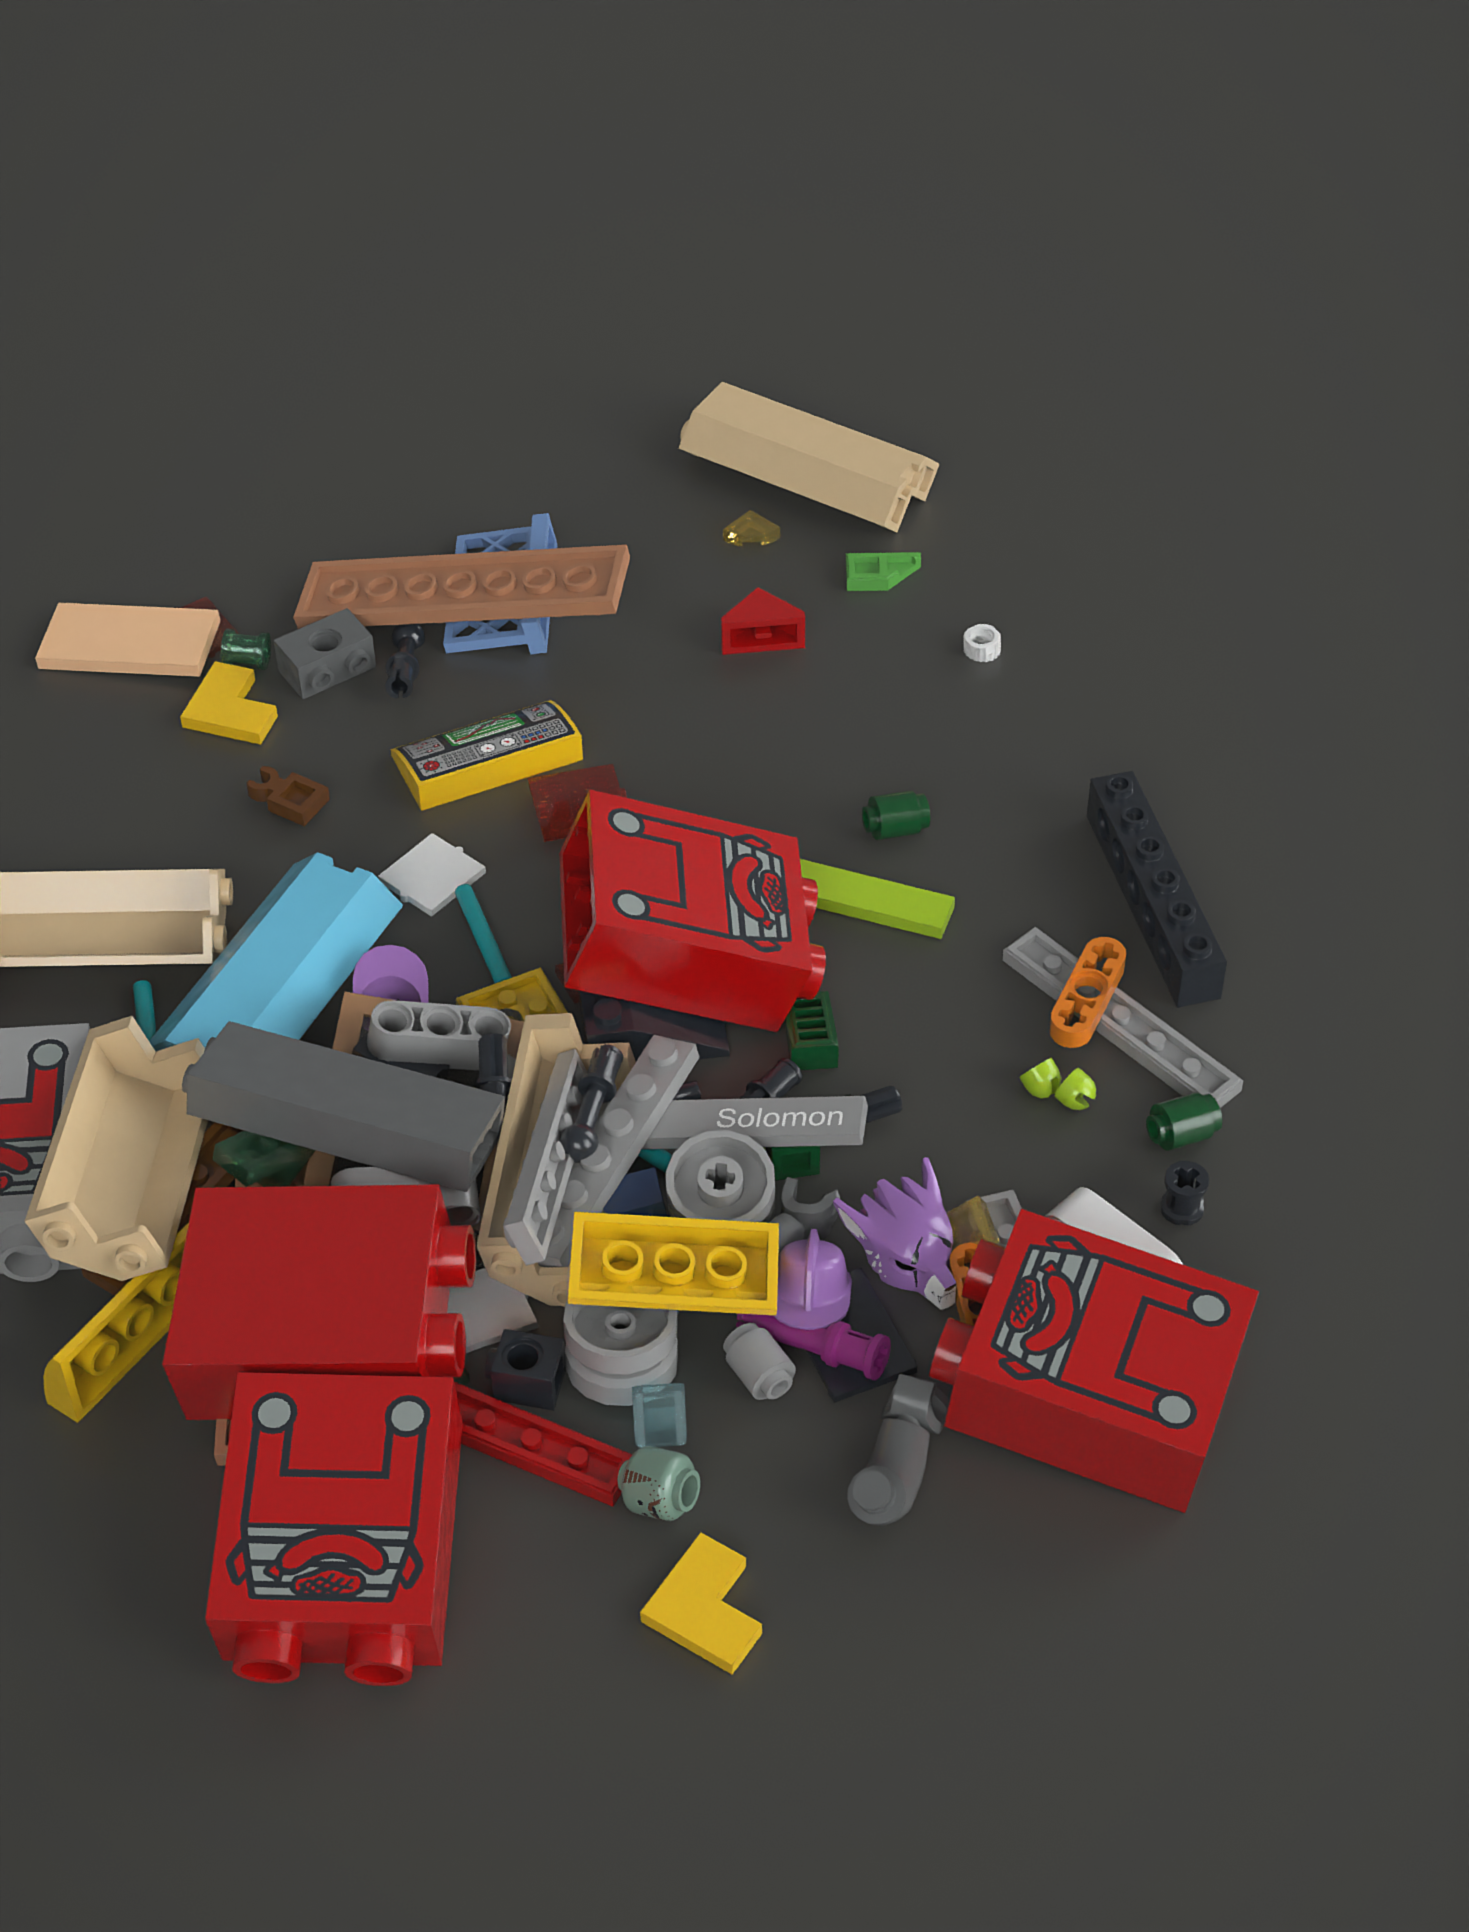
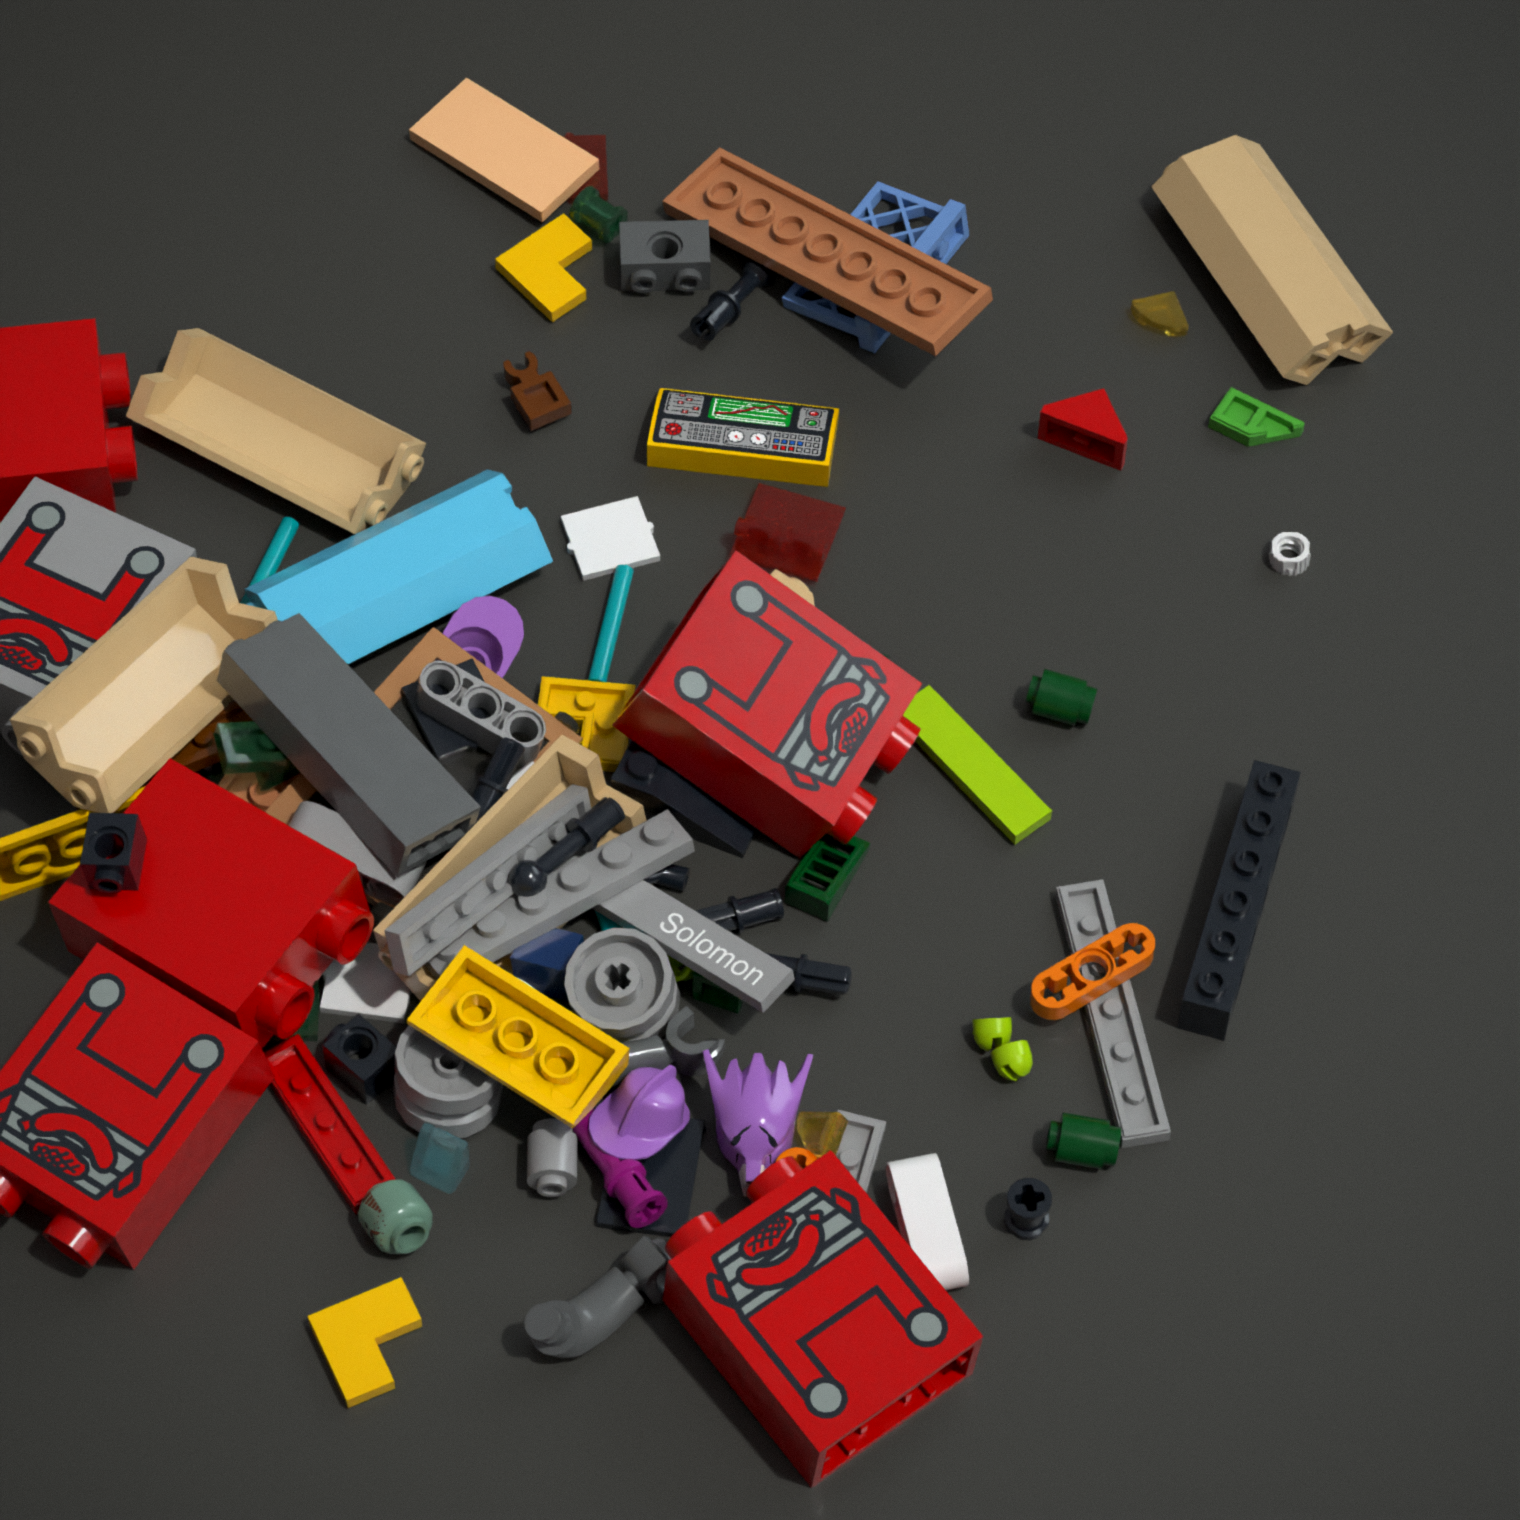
camera: 30 degrees right, 10 degrees up
(197, 1268) = (110, 835): none -> black brick

